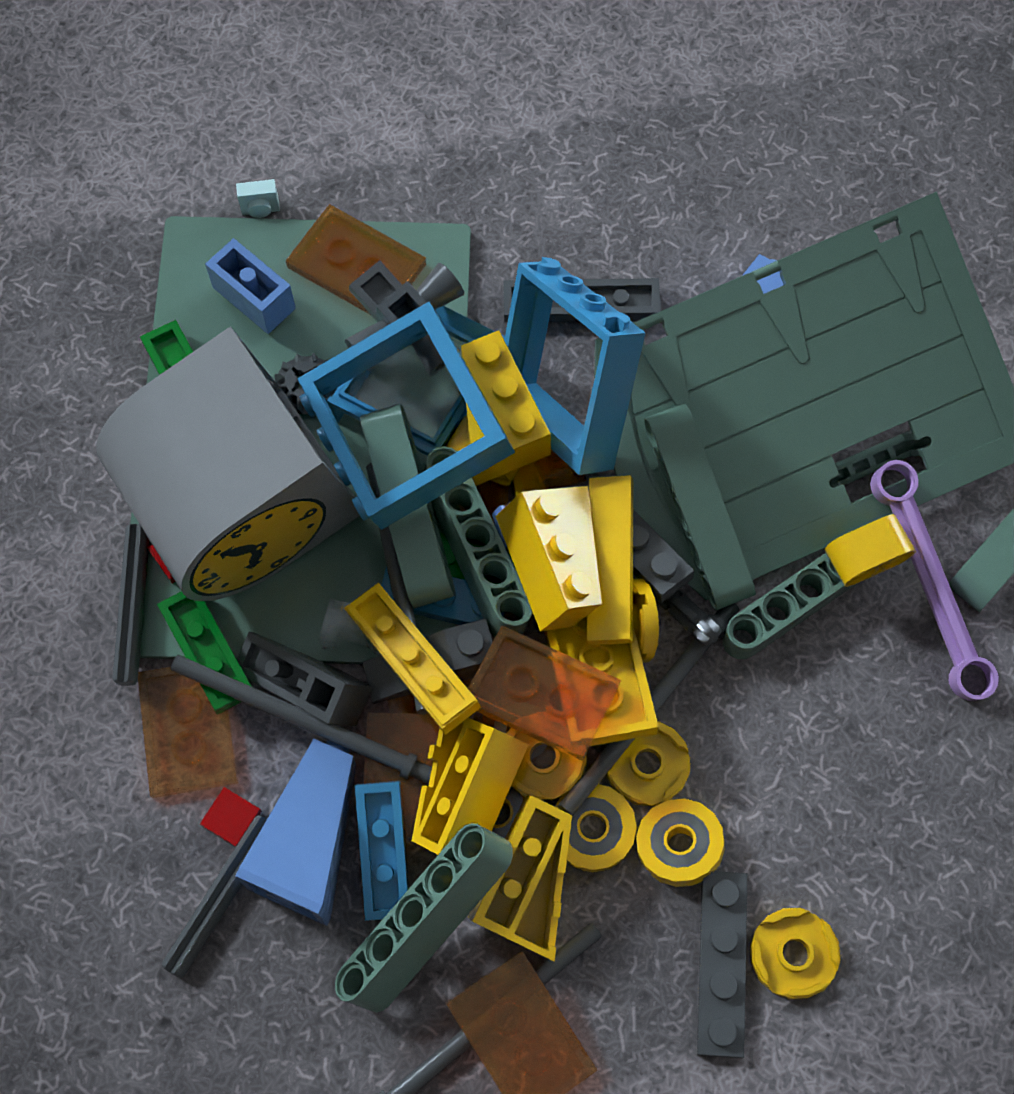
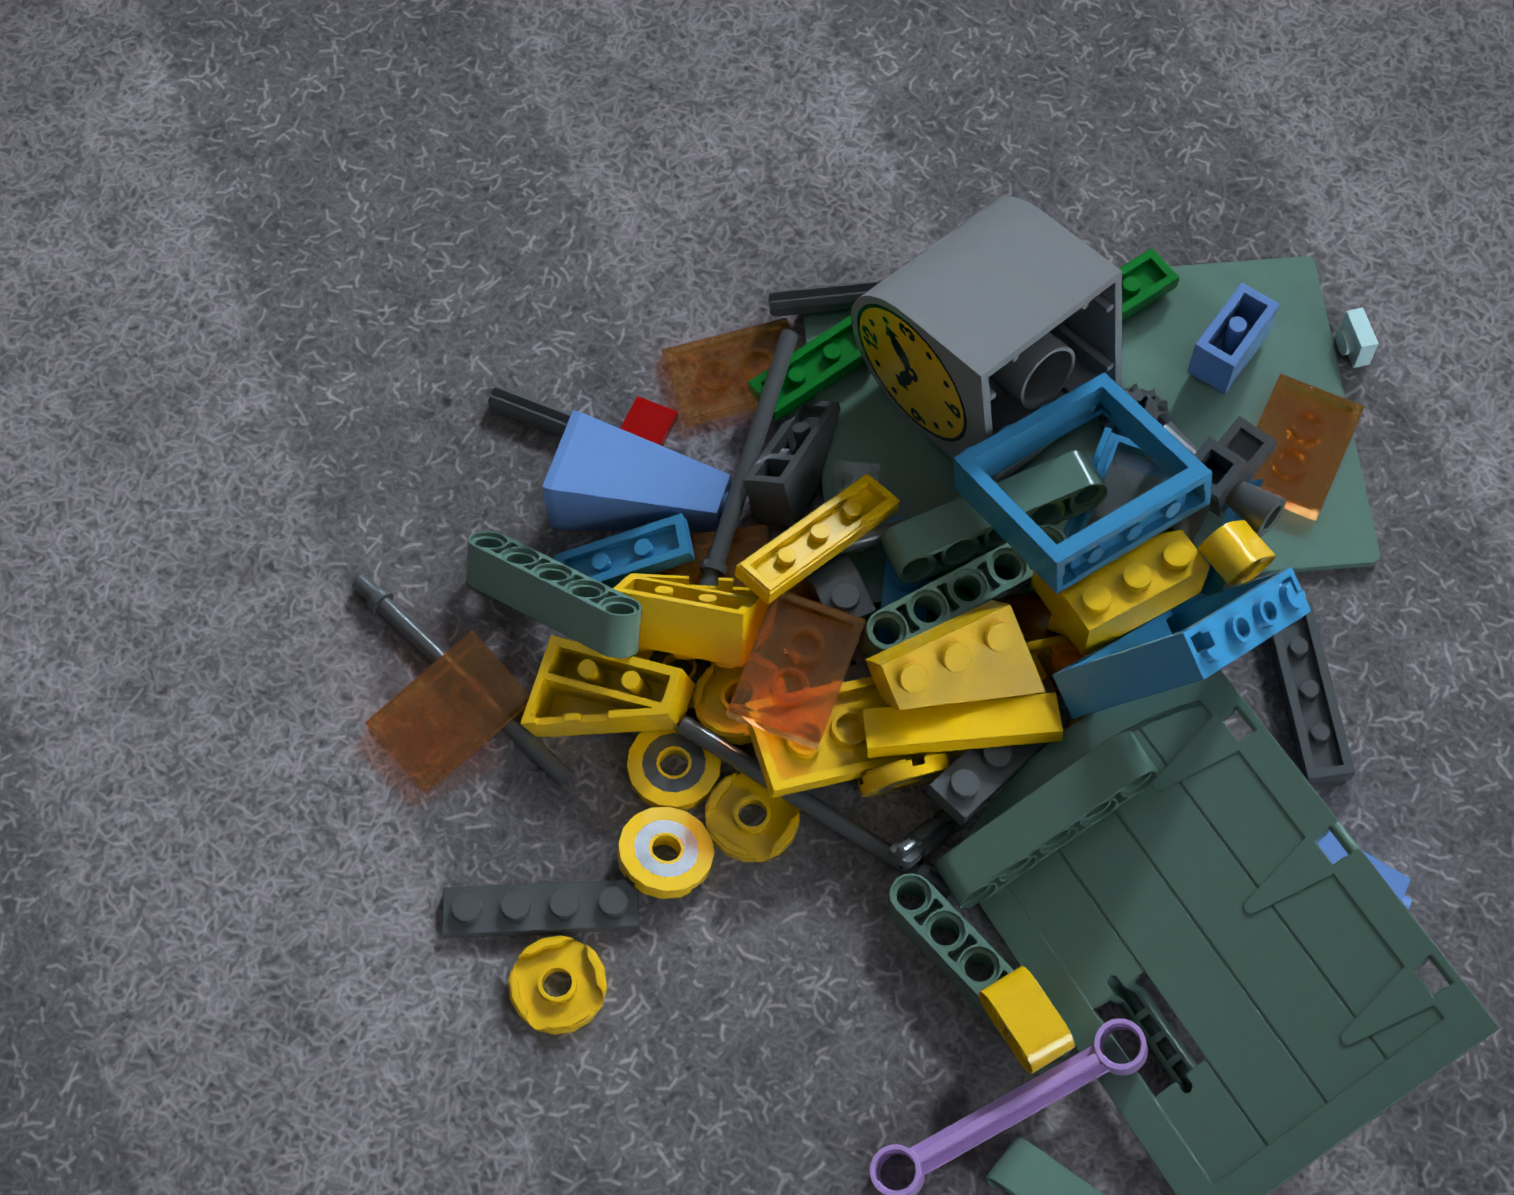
camera: 85 degrees right, 5 degrees down
(484, 309) = (1236, 552): none -> yellow beam

